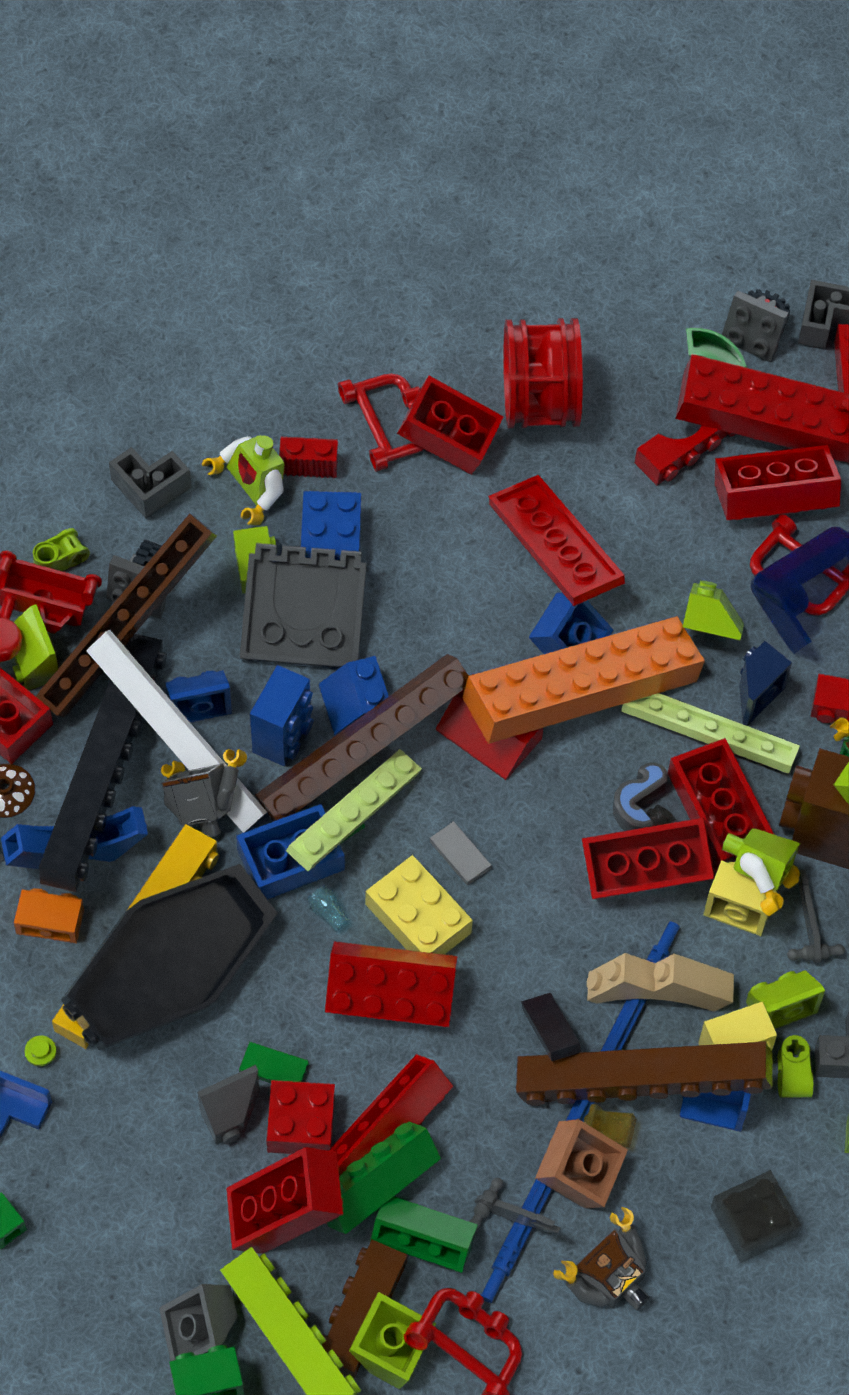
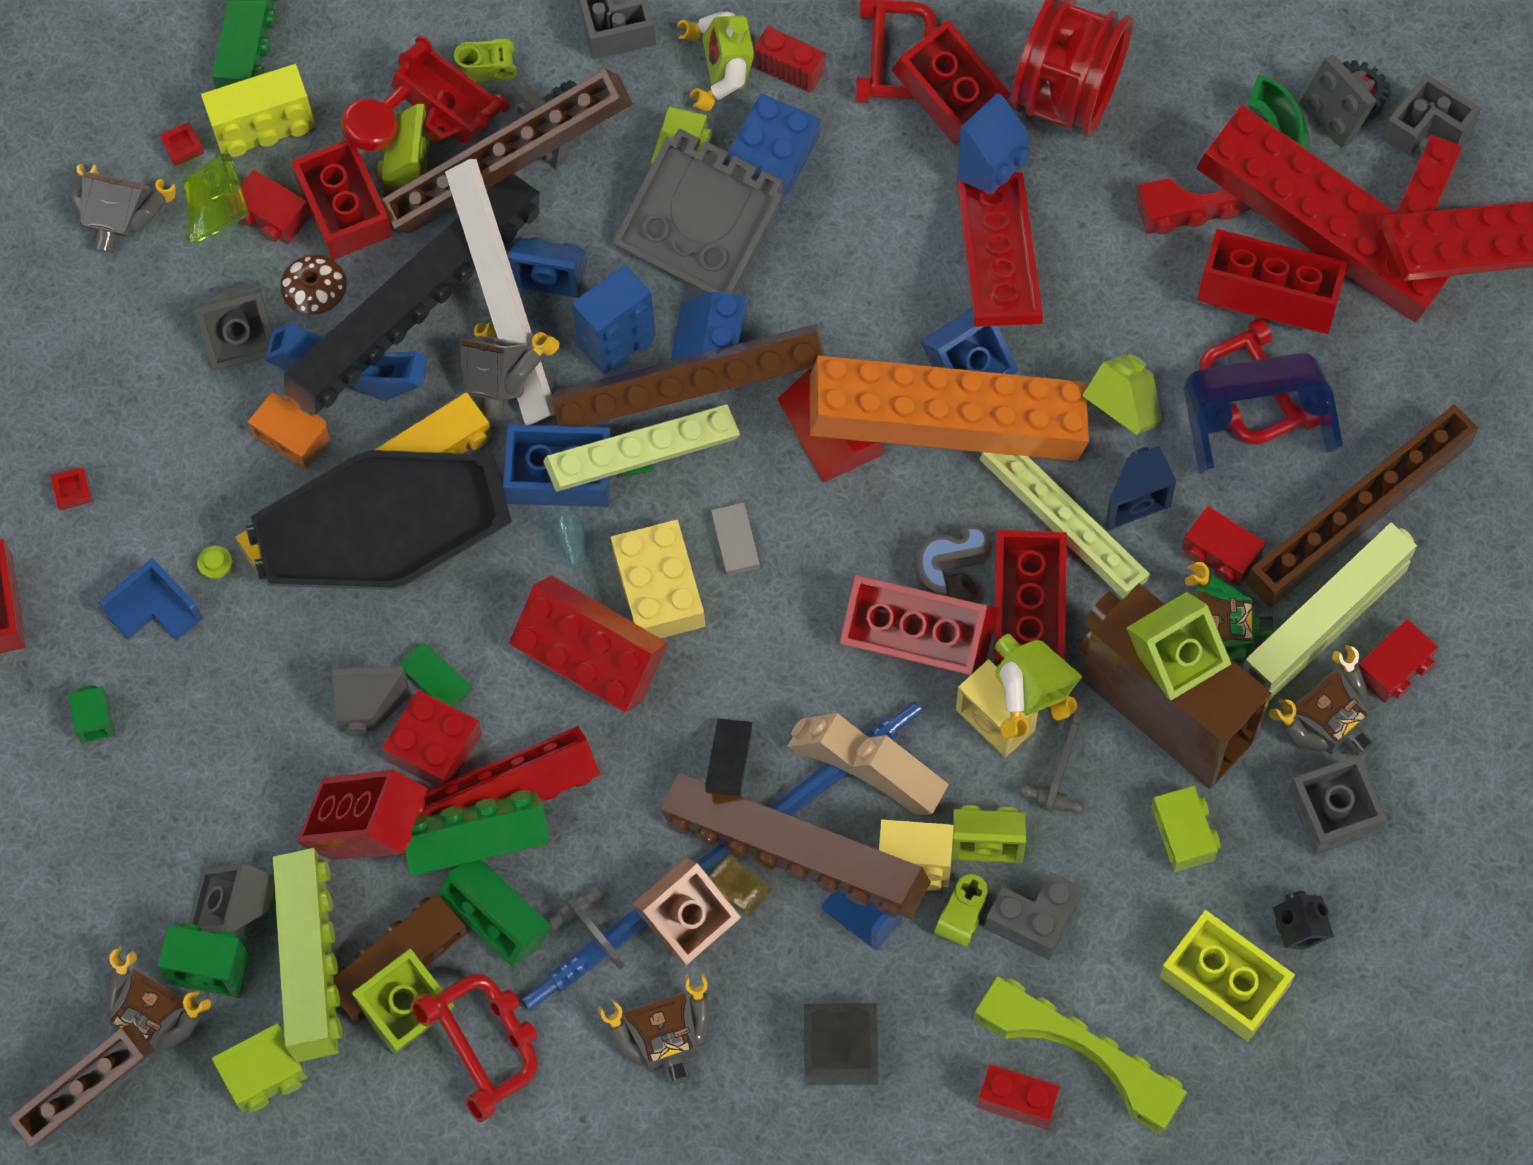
camera: 30 degrees right, 5 degrees up
(510, 462) = (992, 146): none -> blue slope

